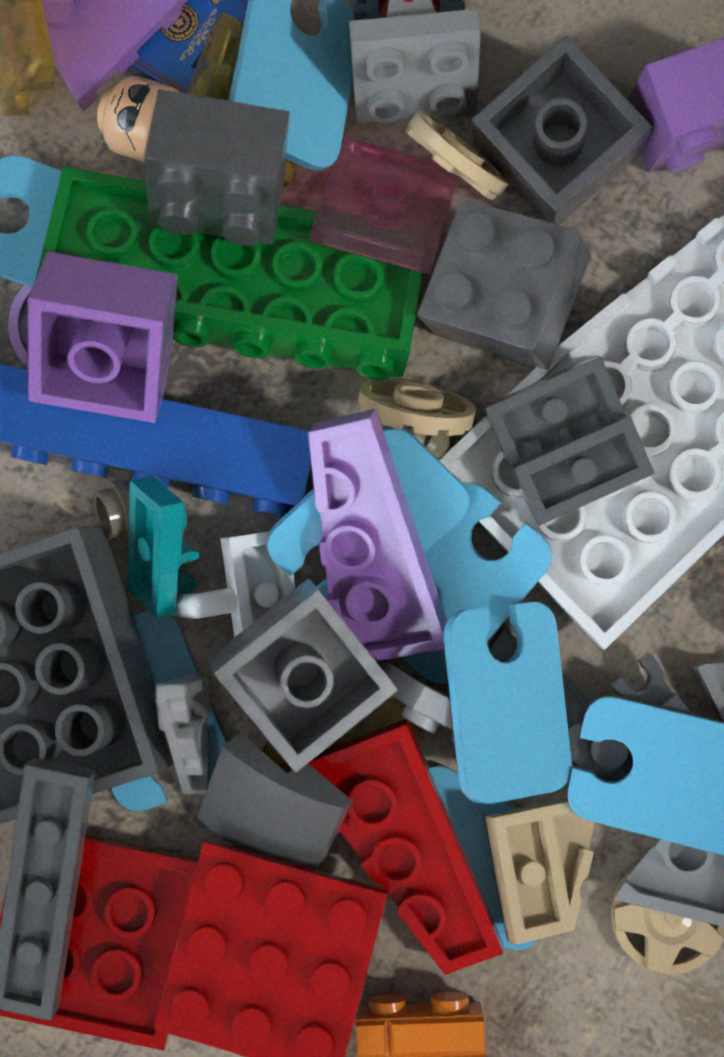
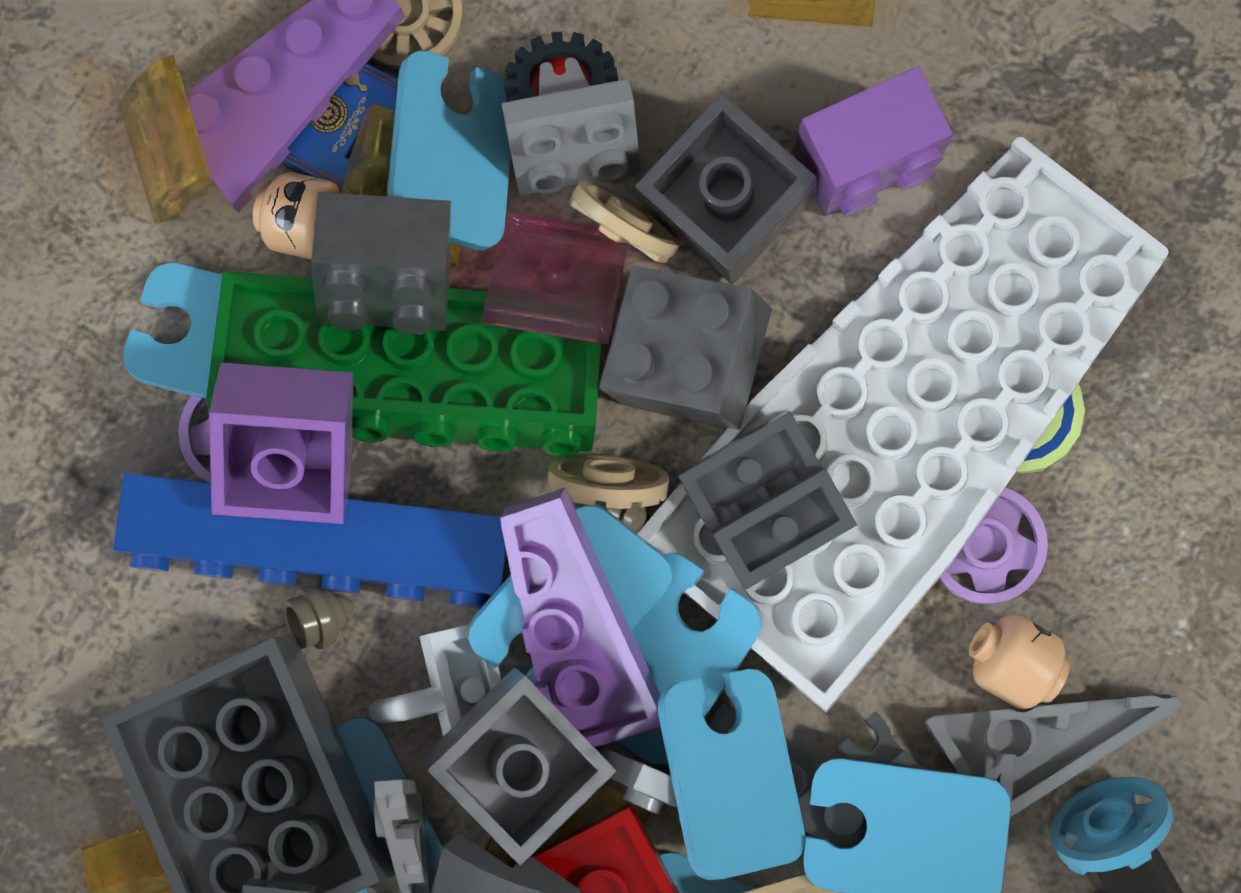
camera: 10 degrees left, 5 degrees down
(157, 546) = (355, 651): teal plate -> none

